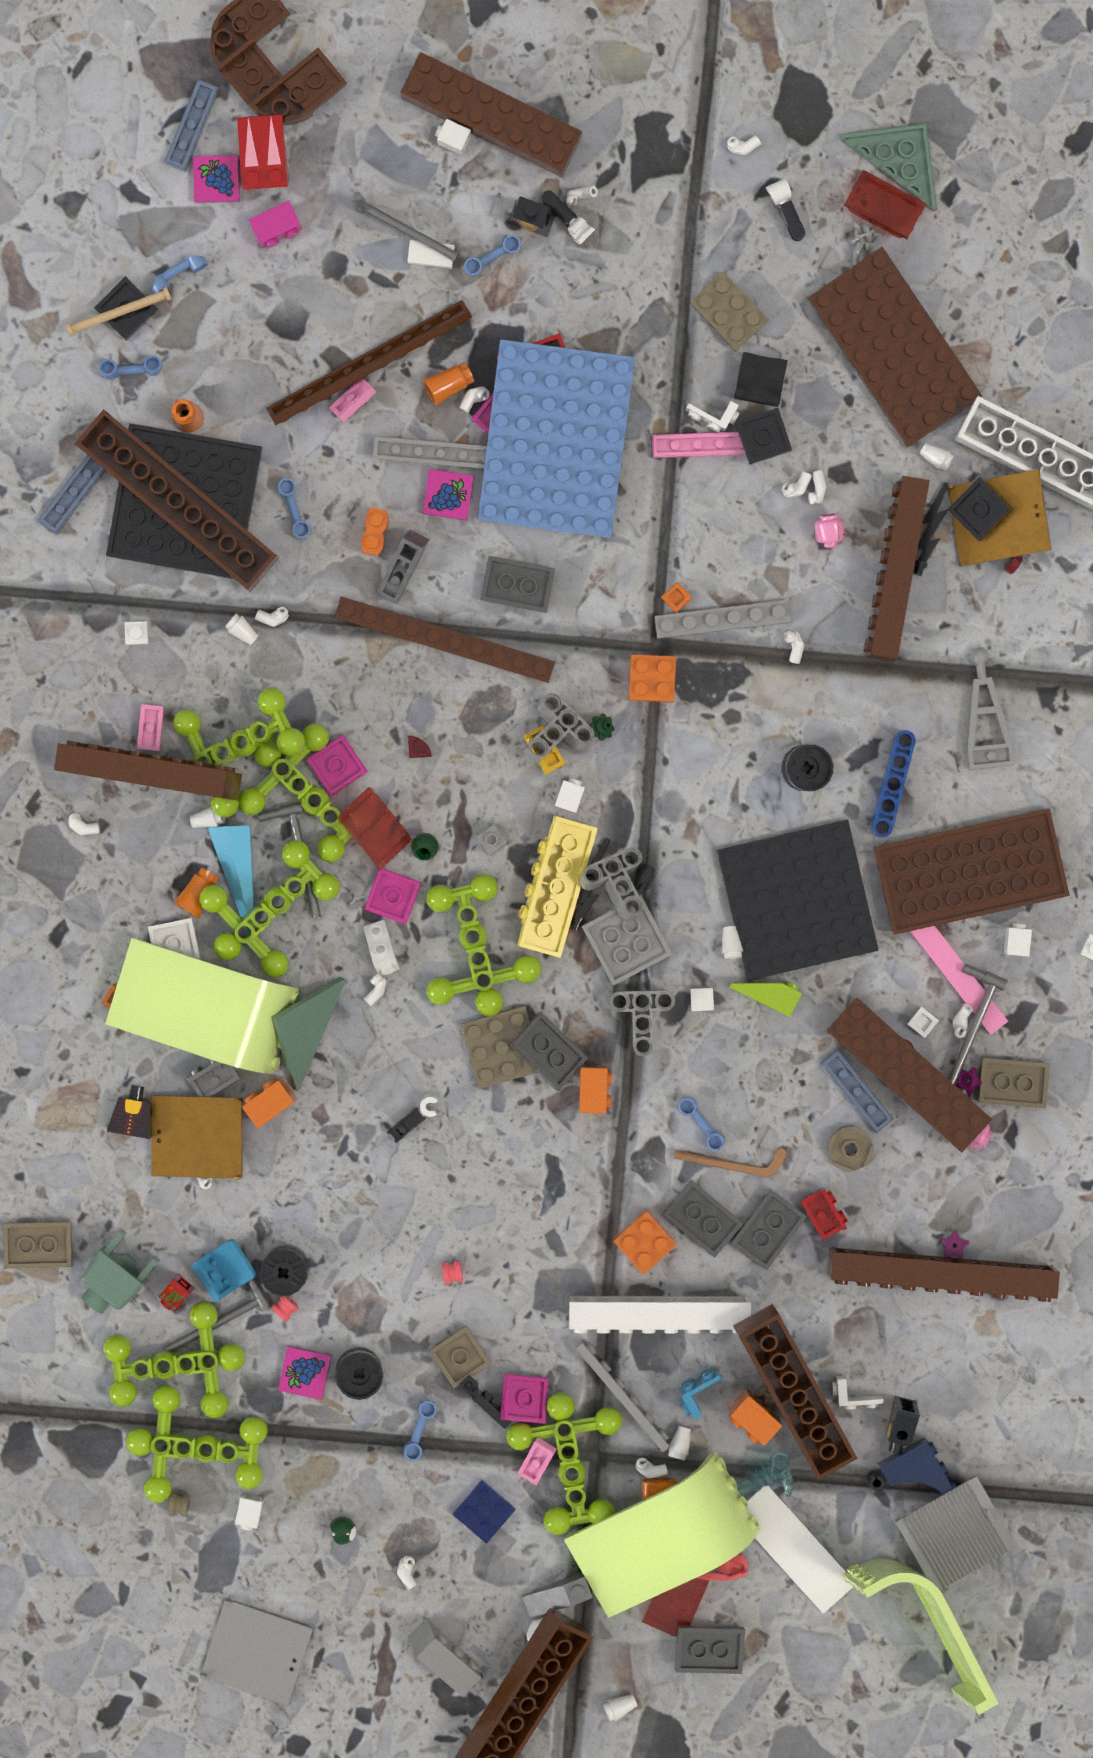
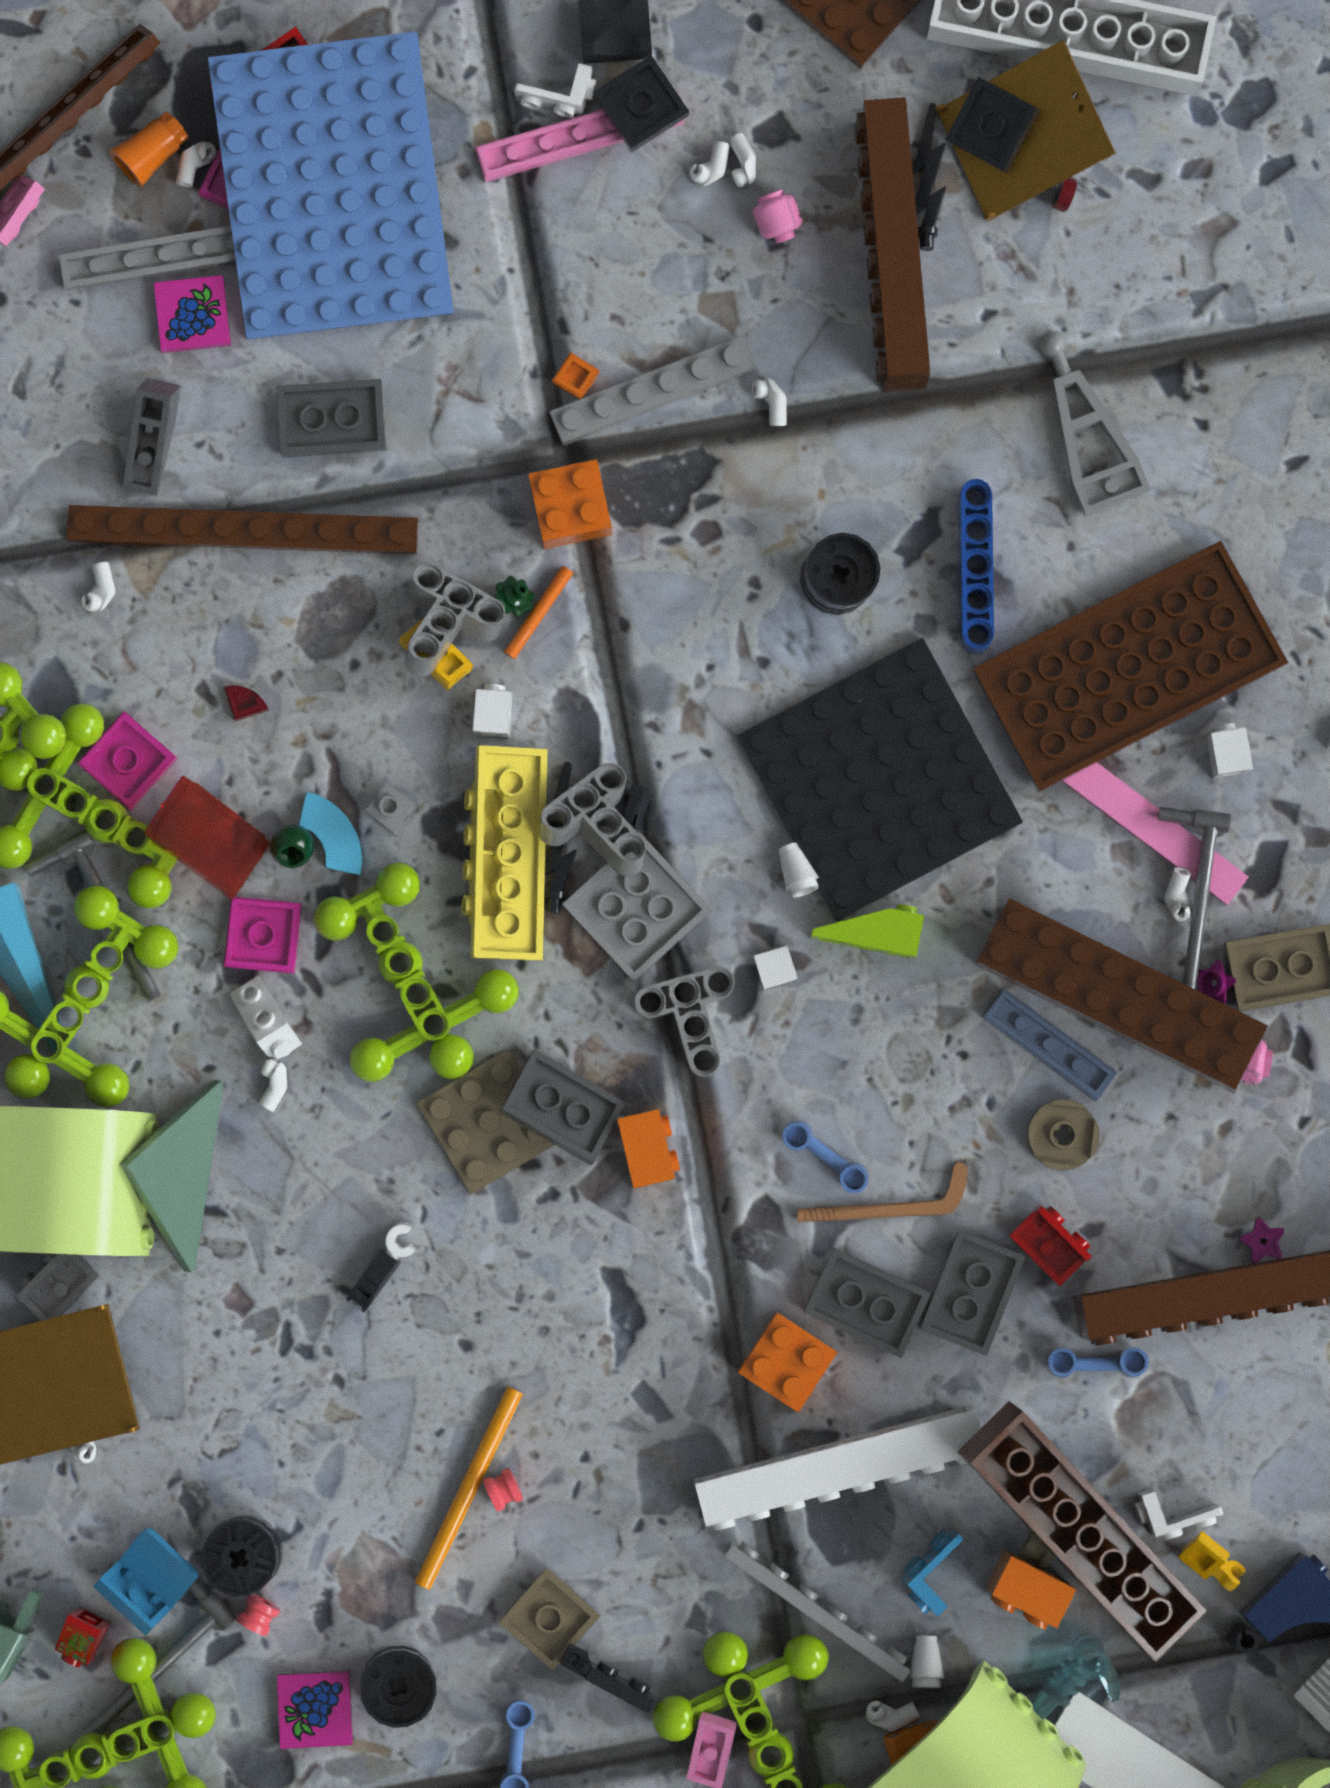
camera: 15 degrees left, 5 degrees down
(270, 1102) = (151, 1299): orange brick -> none
(347, 656) = (102, 592): none -> white arm
(373, 538) = (96, 388): orange brick -> none
(431, 1265) = (468, 1488): none -> light orange piece
(453, 843) = (335, 833): none -> medium azure tile
(524, 1398) = (666, 1657): dark pink tile -> none
(615, 739) = (538, 612): none -> orange bar
(853, 1297) = (1130, 1363): none -> medium blue bar
(868, 1427) = (1209, 1559): none -> yellow plate
(902, 1423) = (1260, 1539): black torso -> none
(922, 1022) = (1119, 912): white plate -> none
(937, 456) = (908, 68): white cone -> none

